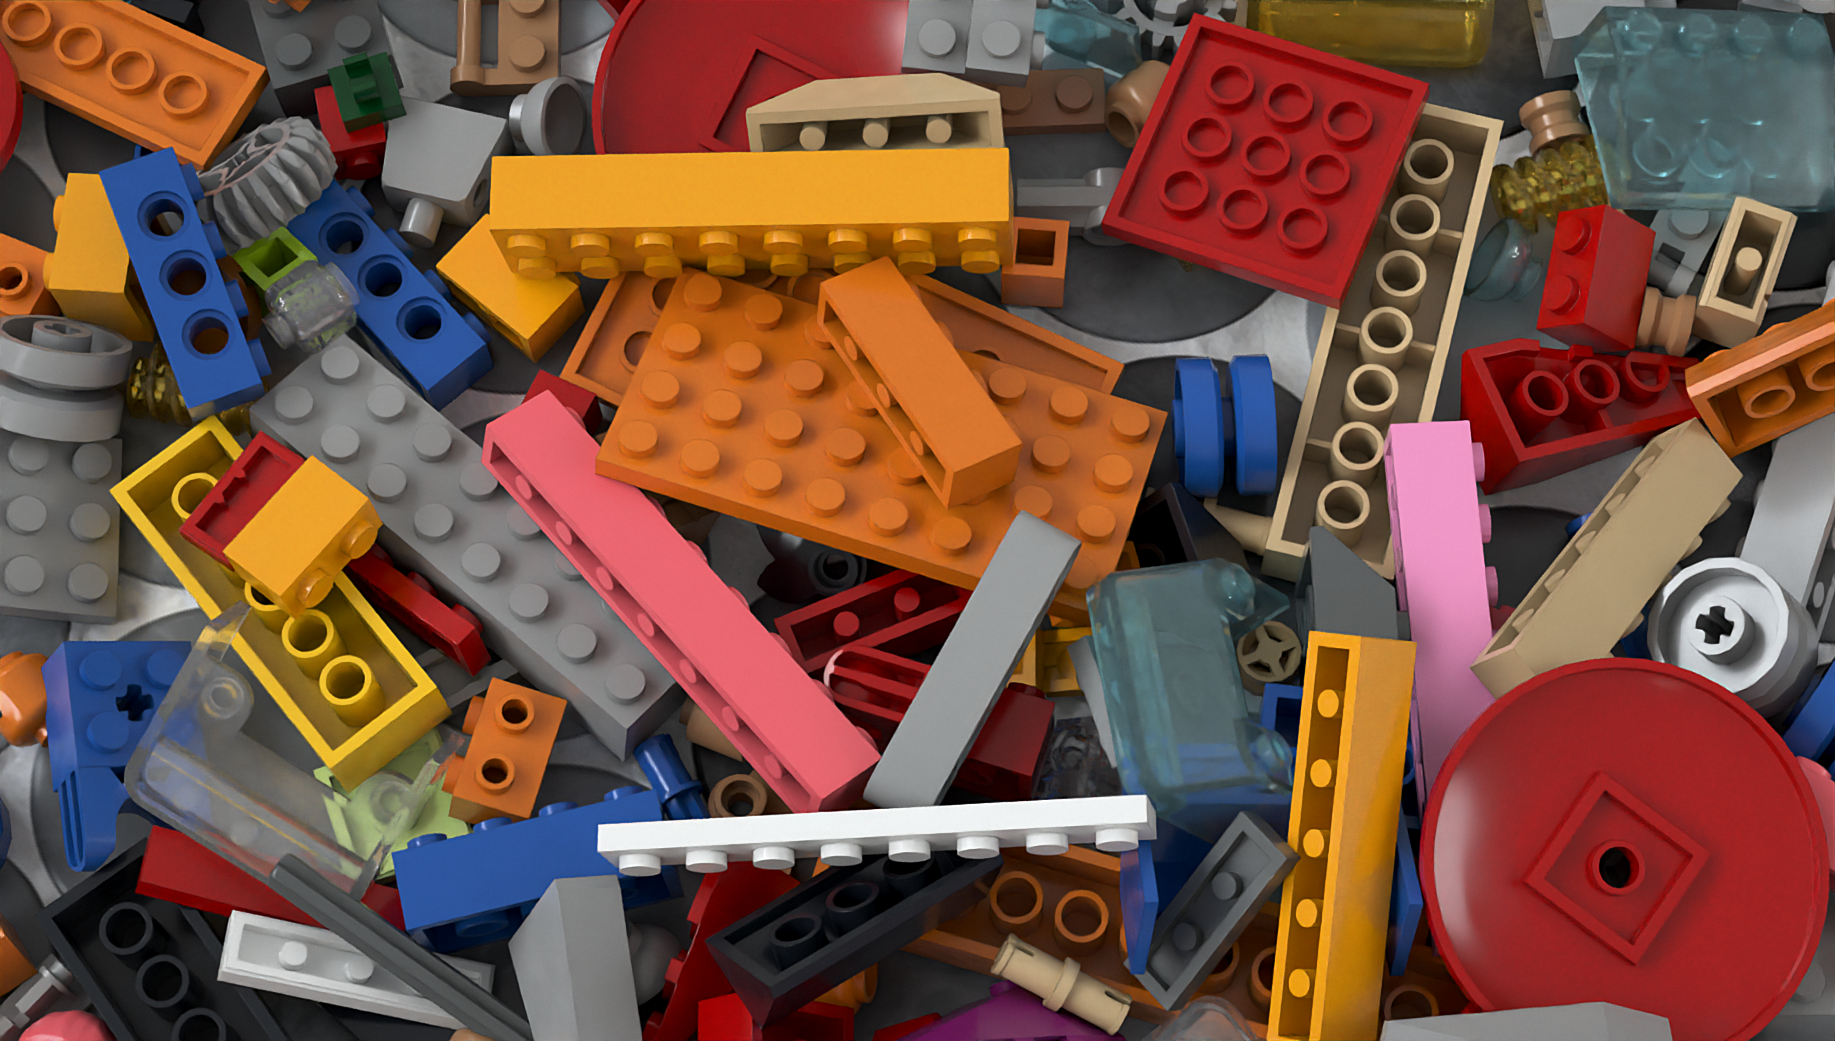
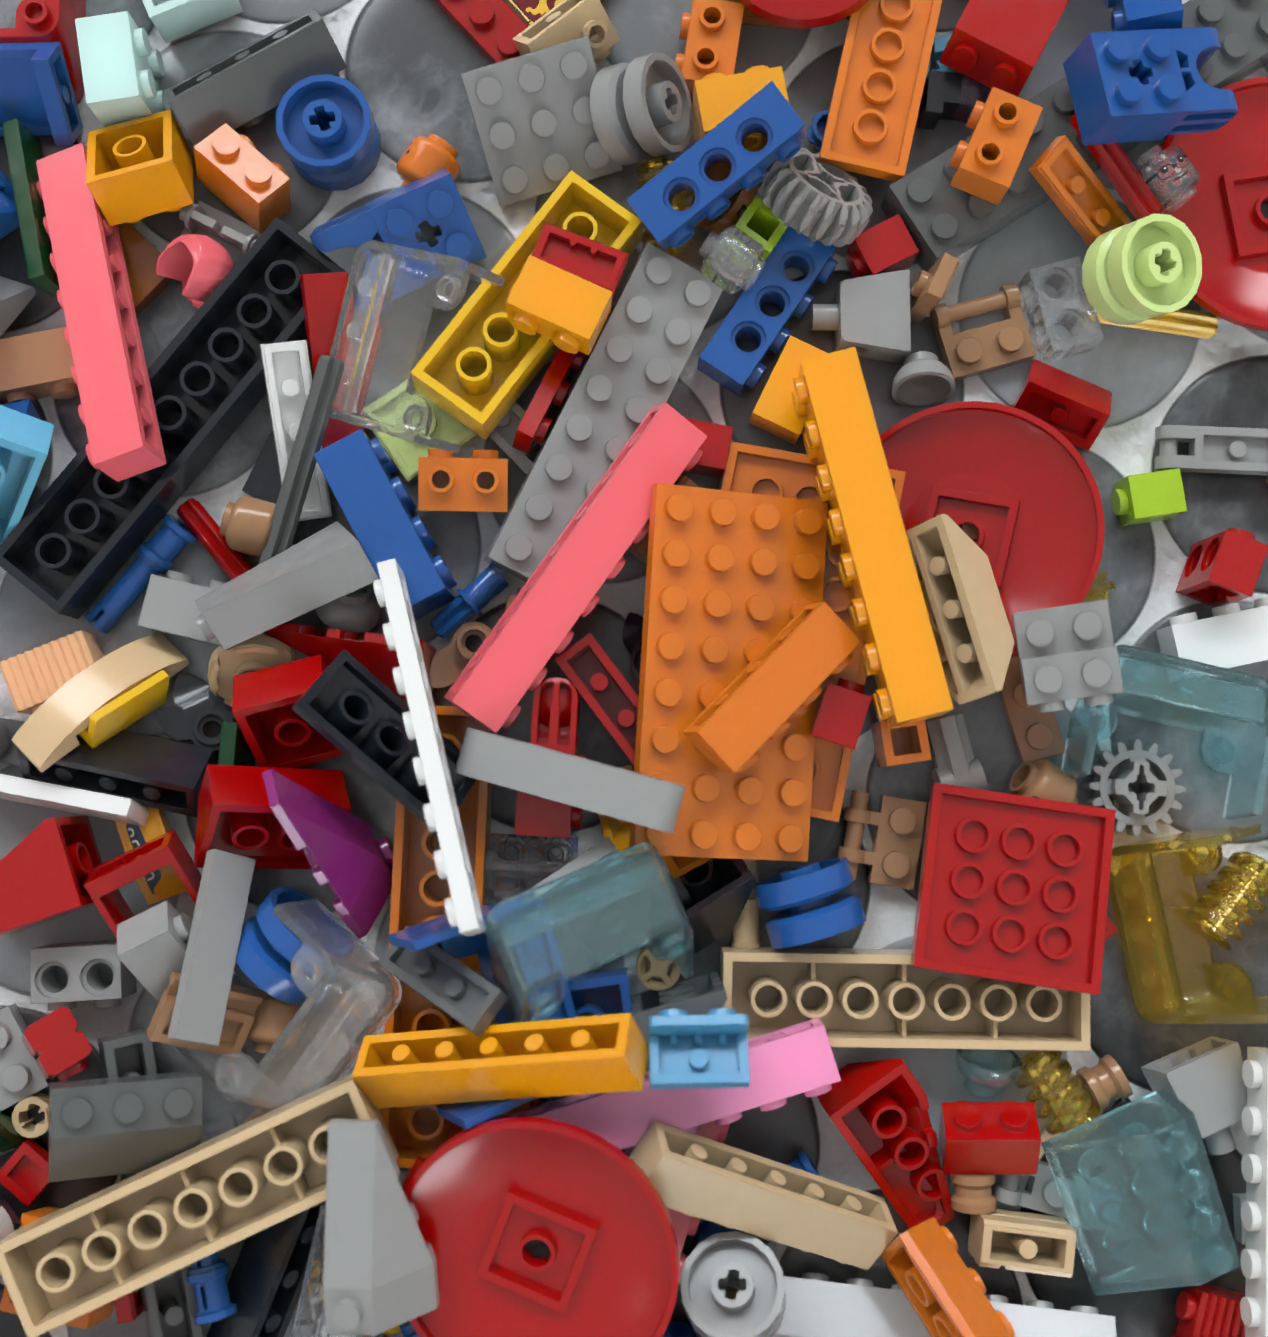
camera: 70 degrees right, 15 degrees up
(366, 91) = (903, 249): dark green tile -> none
(427, 66) = (931, 286): none -> medium nougat plate
(980, 314) = (842, 713): none -> red brick
(1061, 984) = (381, 888): tan pin -> none
(1166, 309) = (895, 839): none -> medium nougat plate
(1381, 567) = (698, 1050): none -> dark azure bracket

